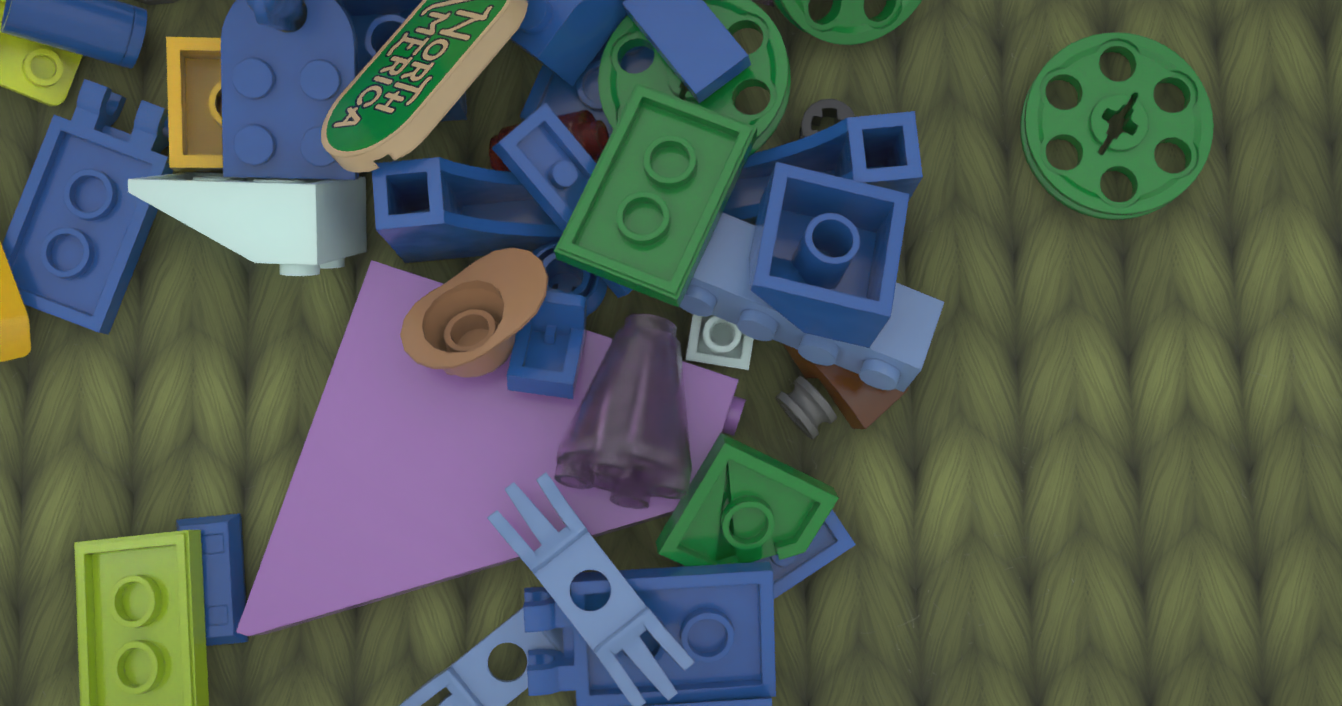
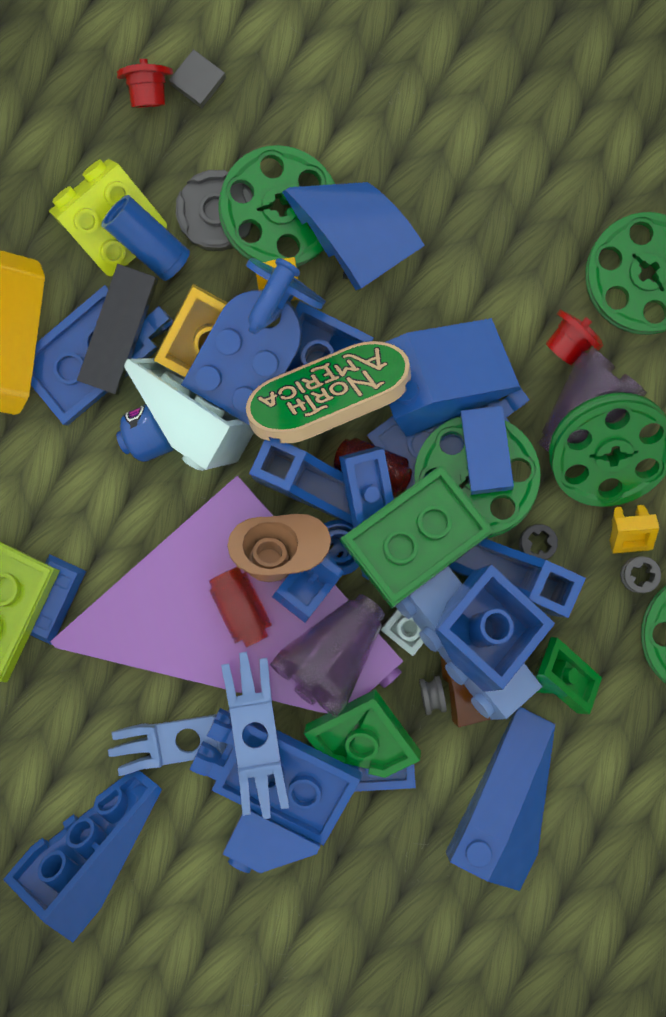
camera: 25 degrees right, 5 degrees up
(100, 159) = (117, 329): none -> black tile
(216, 281) = (142, 435): none -> blue head
(471, 428) = (240, 607): none -> clear red head
(944, 43) = (633, 532): none -> yellow tile
(969, 276) = (567, 676): none -> green slope
(997, 513) = (505, 816): none -> blue wedge
(999, 80) = (637, 562): none -> dark grey bush

